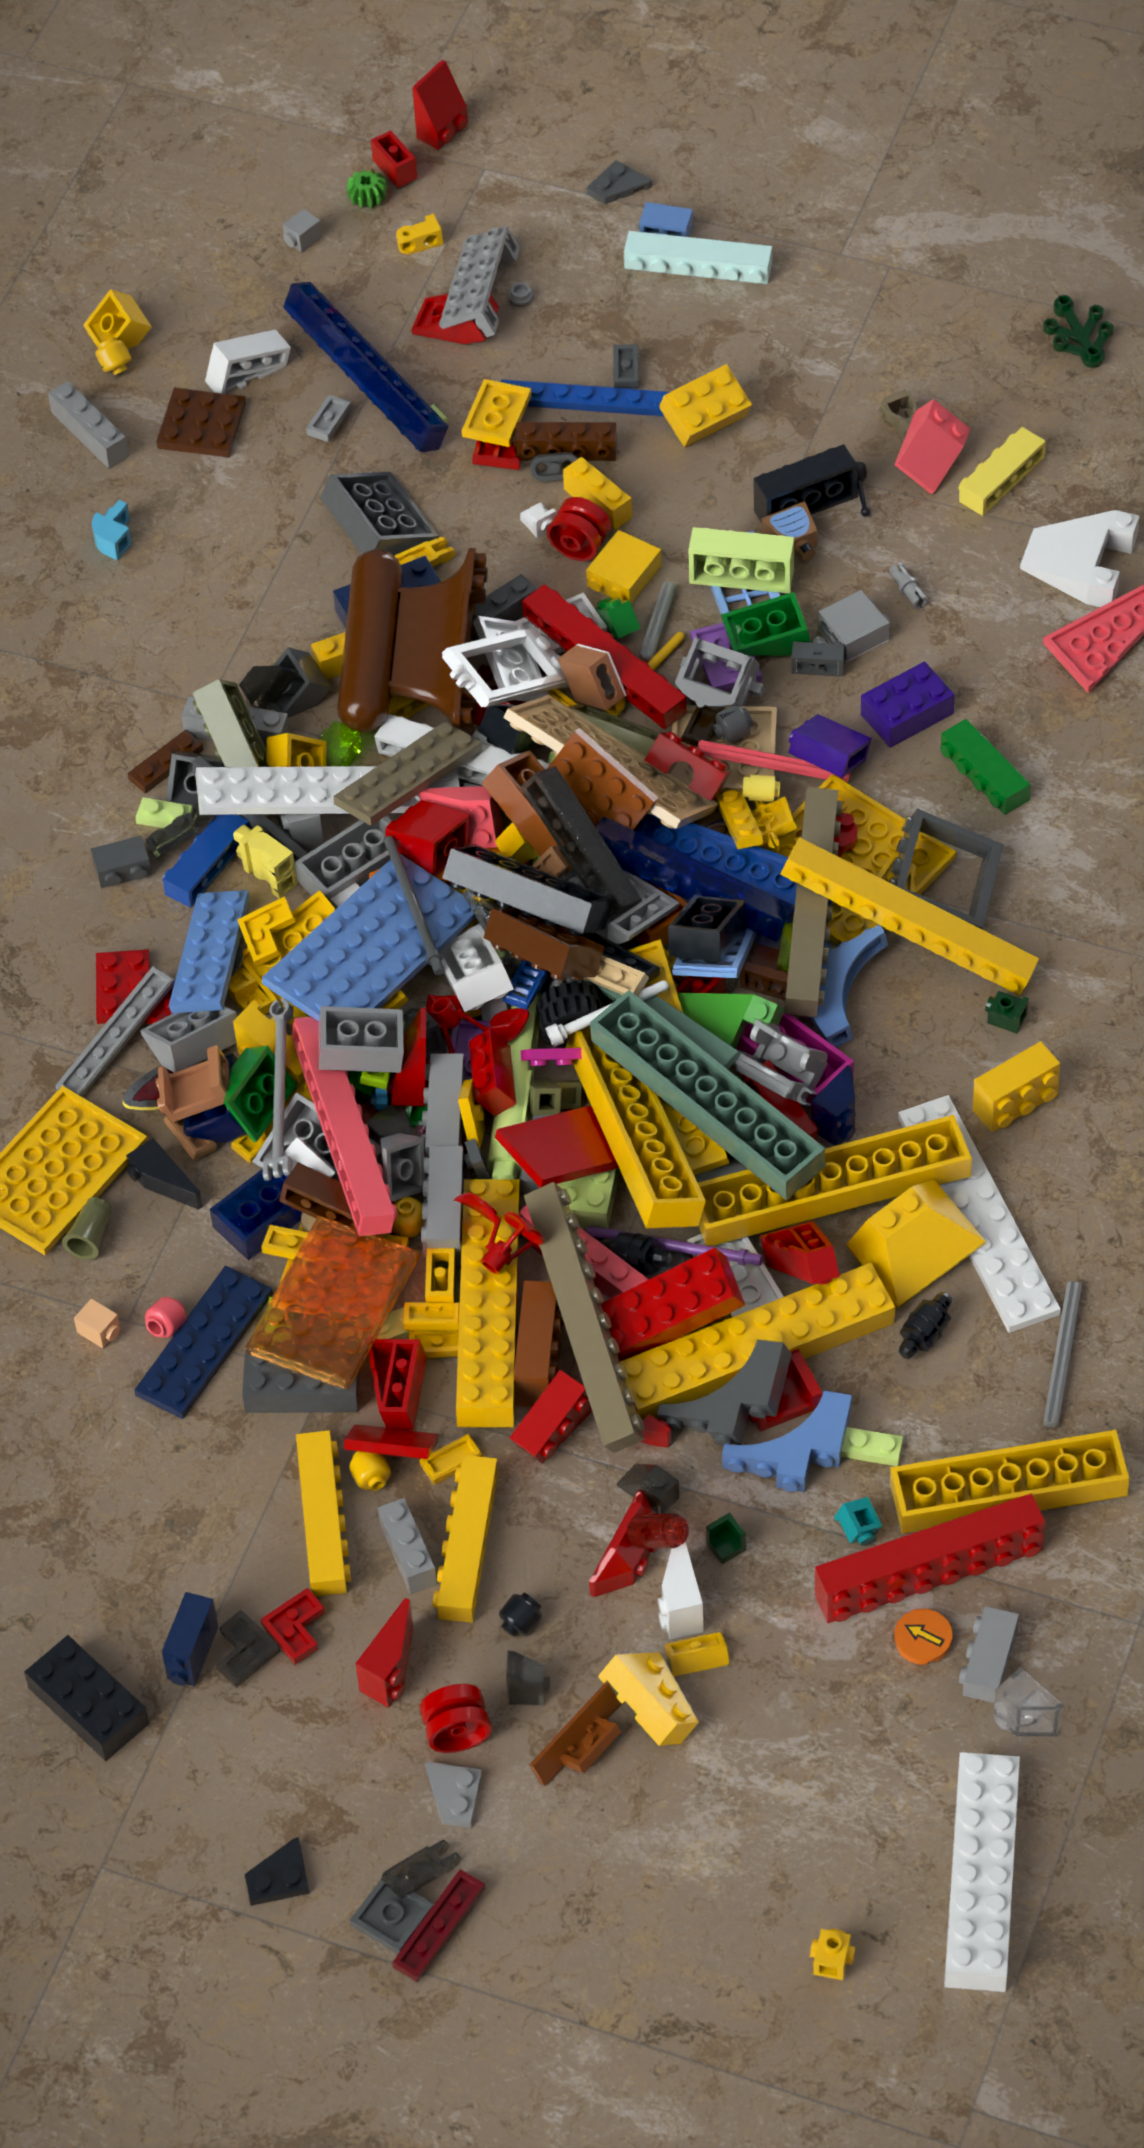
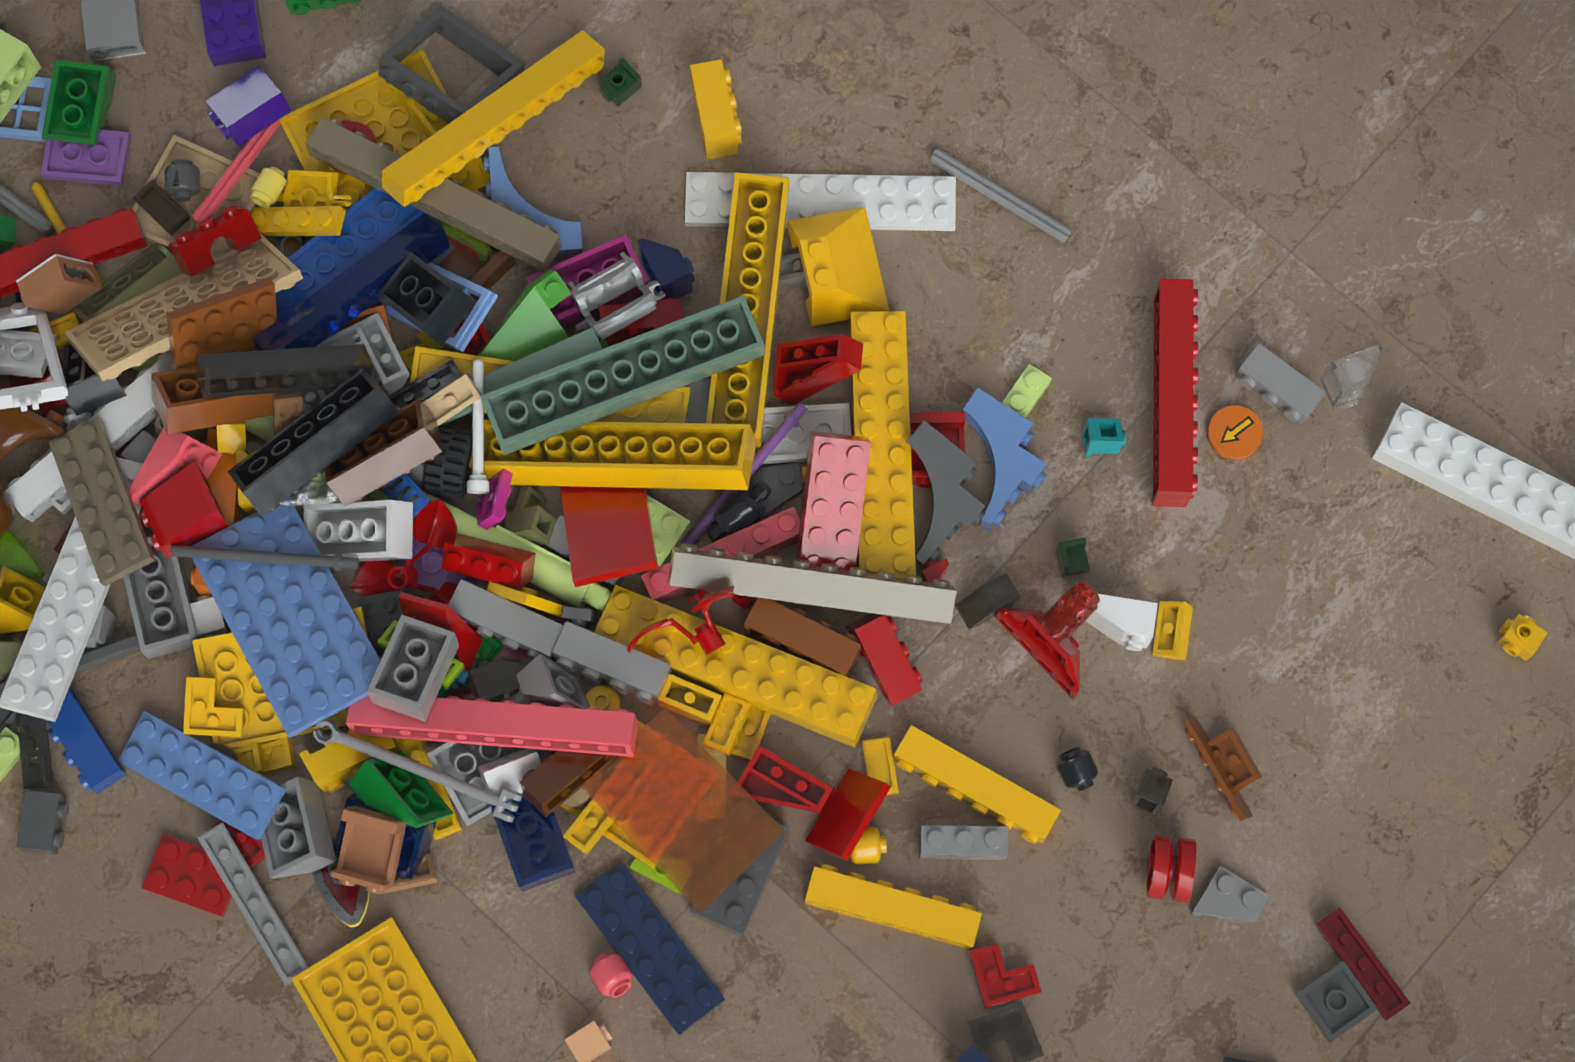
camera: 70 degrees left, 20 degrees up
(88, 1230) = (474, 1012): olive plant -> none
(161, 1175) = (439, 920): black slope -> none
(266, 859) = (115, 678): light yellow hips -> none
(385, 1661) = (1084, 904): red slope -> none
(420, 1869) = (1308, 960): clear smoke hinge -> none
(653, 1694) = (1215, 684): yellow wedge -> none
(710, 696) = (136, 190): light grey animal -> none
(818, 658) = (133, 73): dark grey piece -> none
(925, 1325) = (927, 295): black piece -> none
(1054, 1472) = (1120, 295): yellow brick -> none

